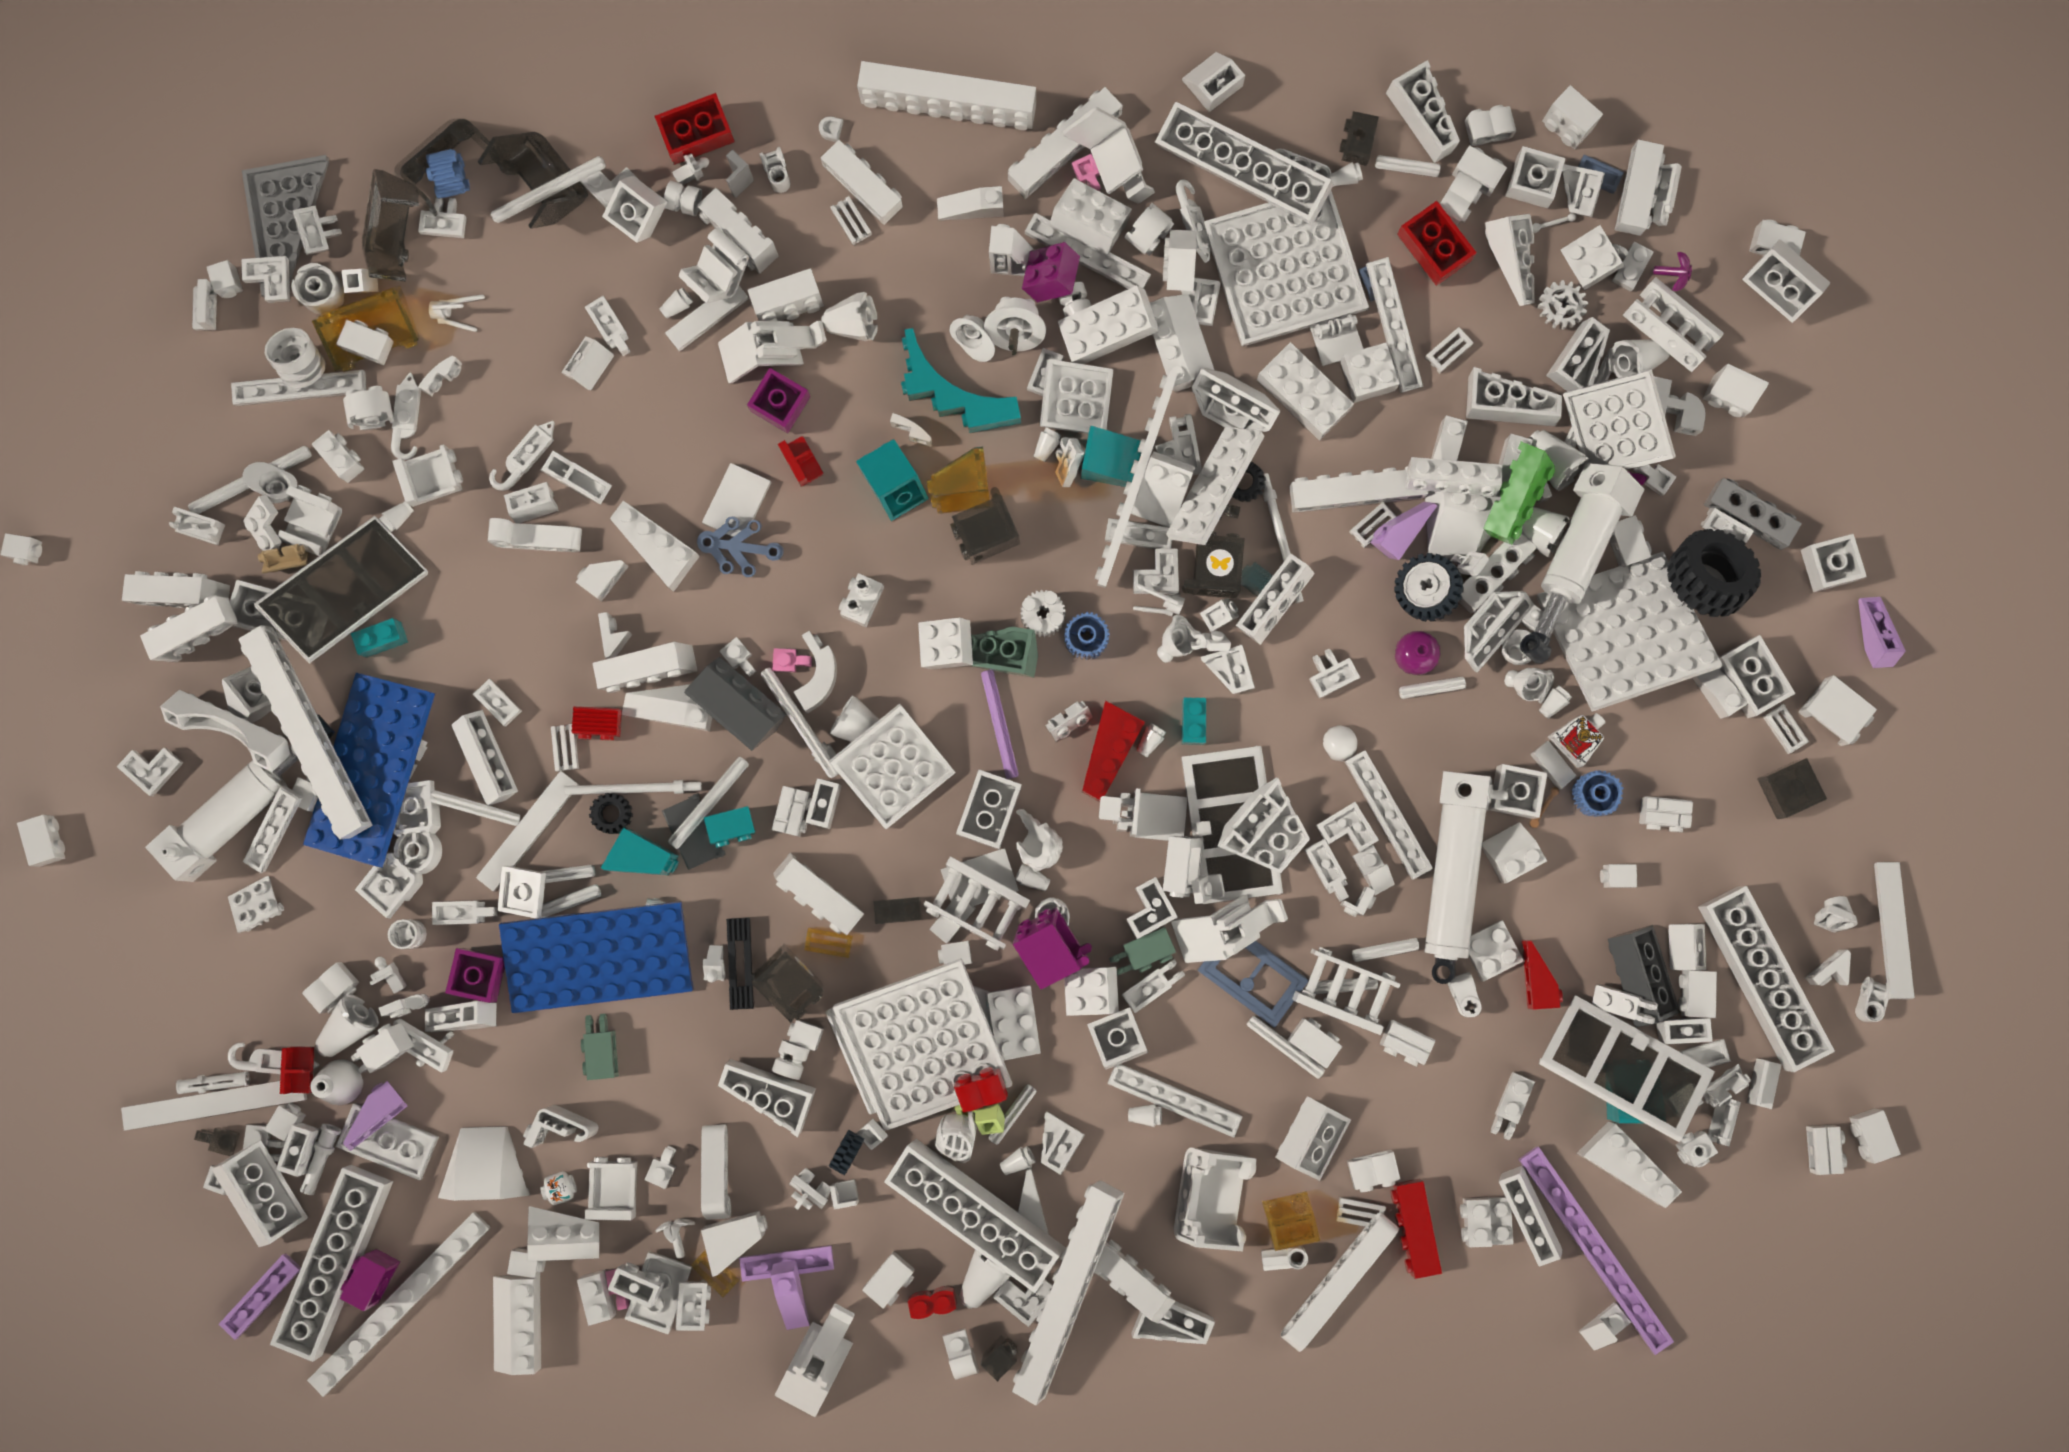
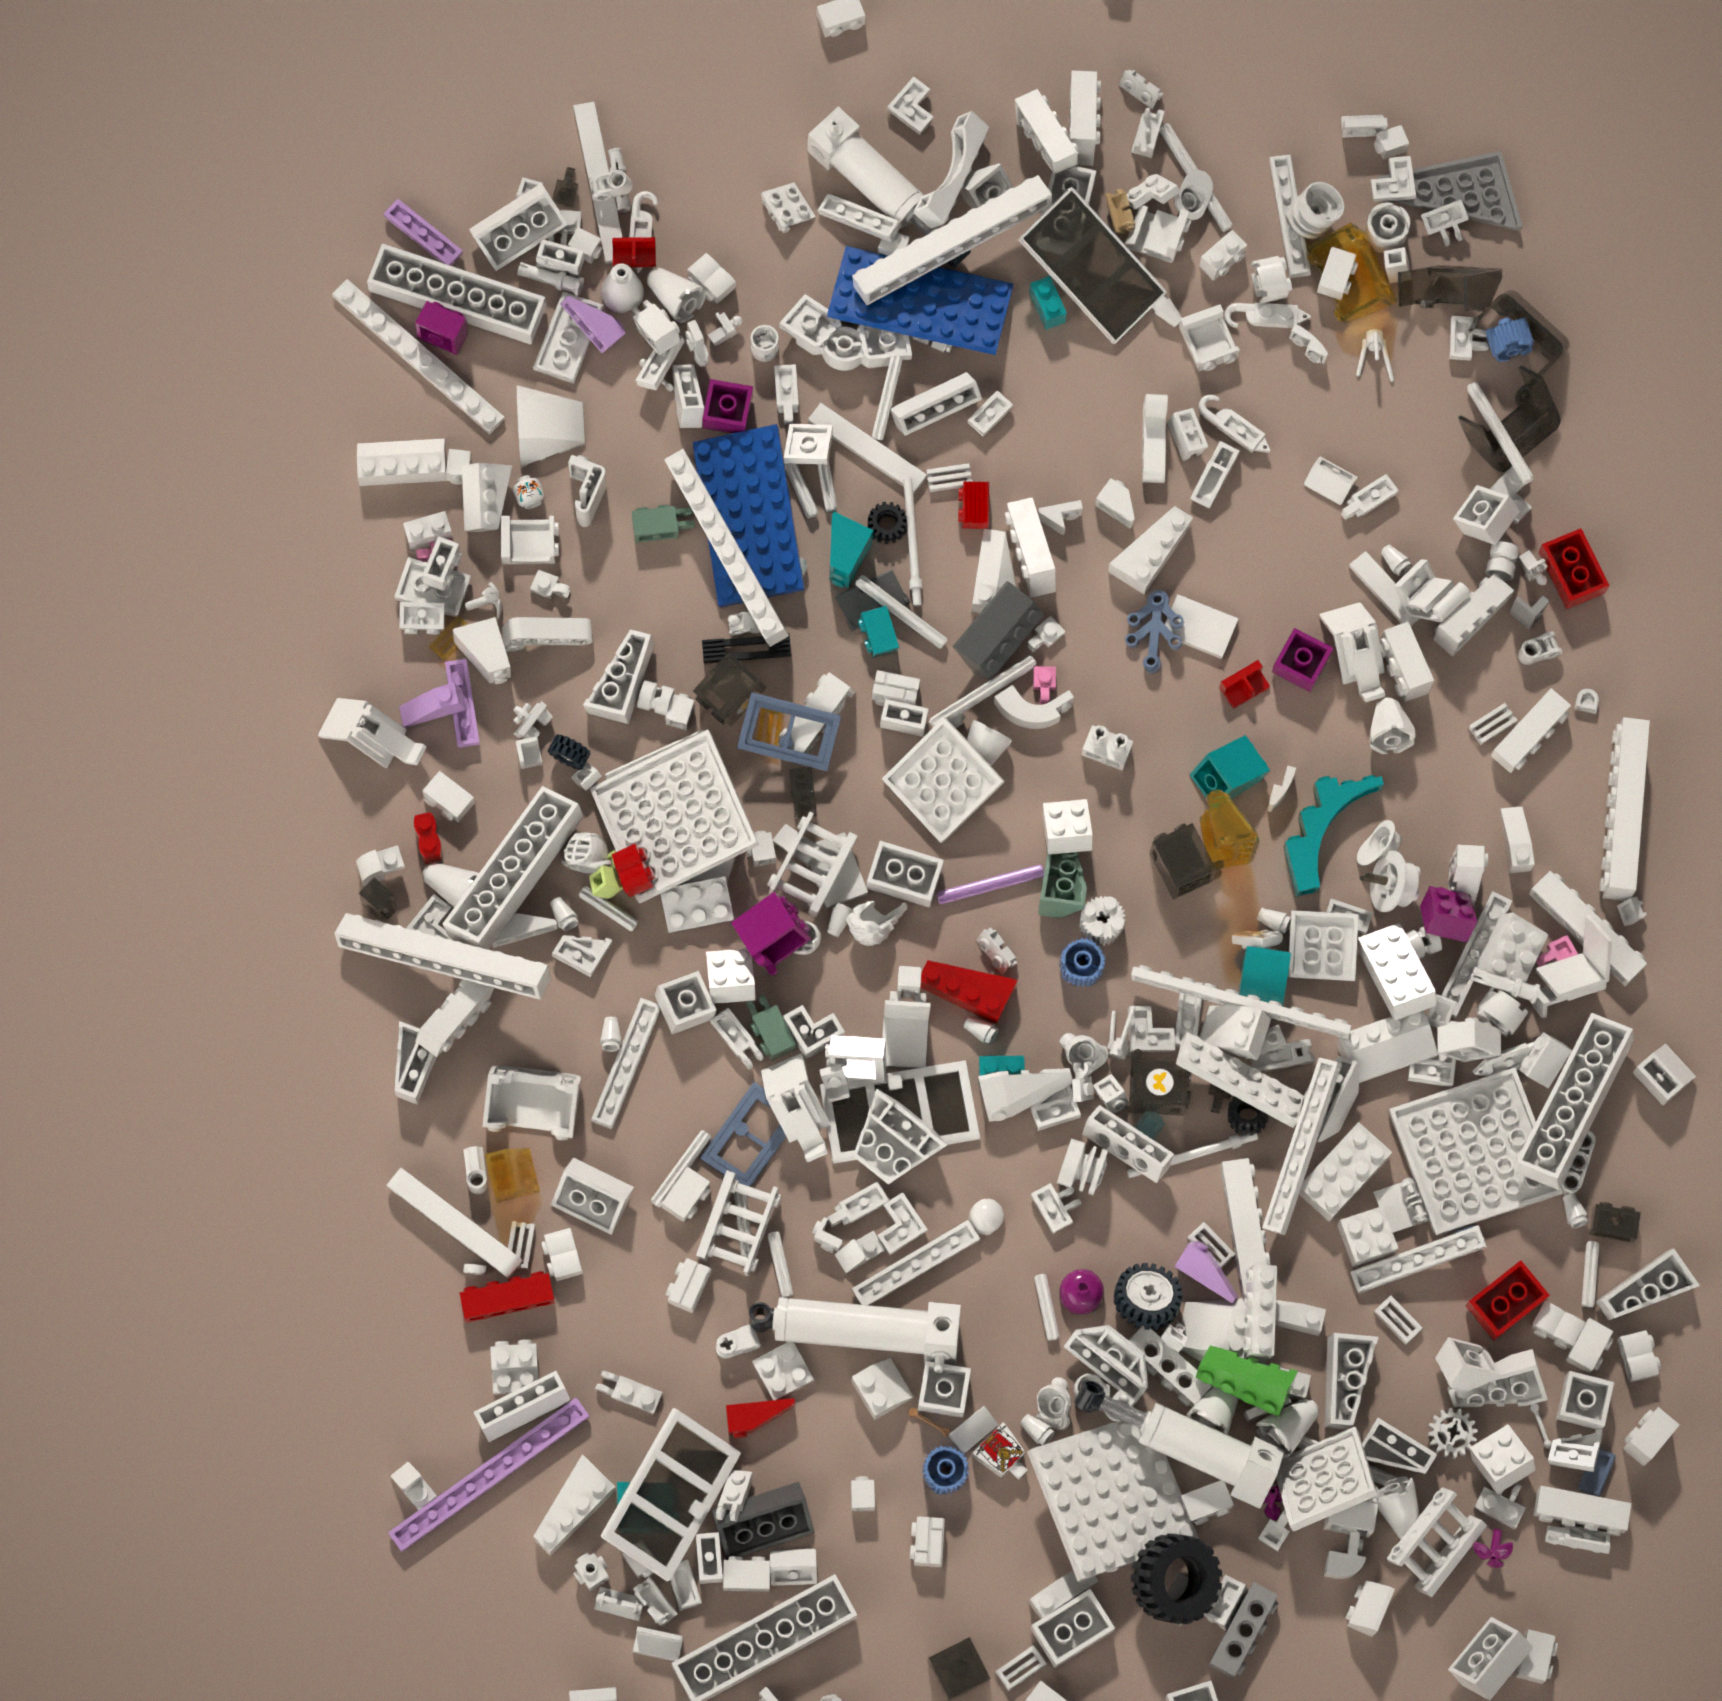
camera: 80 degrees right, 10 degrees down
(144, 536) = (1136, 86): none -> white hinge
(218, 1098) = (606, 185): none -> white piece
(632, 982) = (726, 547): none -> white brick
(857, 929) = (784, 753): none -> sand blue door
(1049, 100) = (1631, 911): none -> white tile
(1130, 211) = (1514, 987): none -> white pin
(1150, 285) = (1442, 1012): none -> white bracket
(1200, 189) = (1545, 1060): none -> white brick
(1224, 717) = (1010, 1094): none -> white wedge
(1285, 427) = (1302, 1146): none -> white plate
(1299, 640) = (1082, 1167): none -> white wheel
(1387, 1261) = (474, 1269): none -> white tile
(1501, 284) = (1466, 1364): none -> white slope

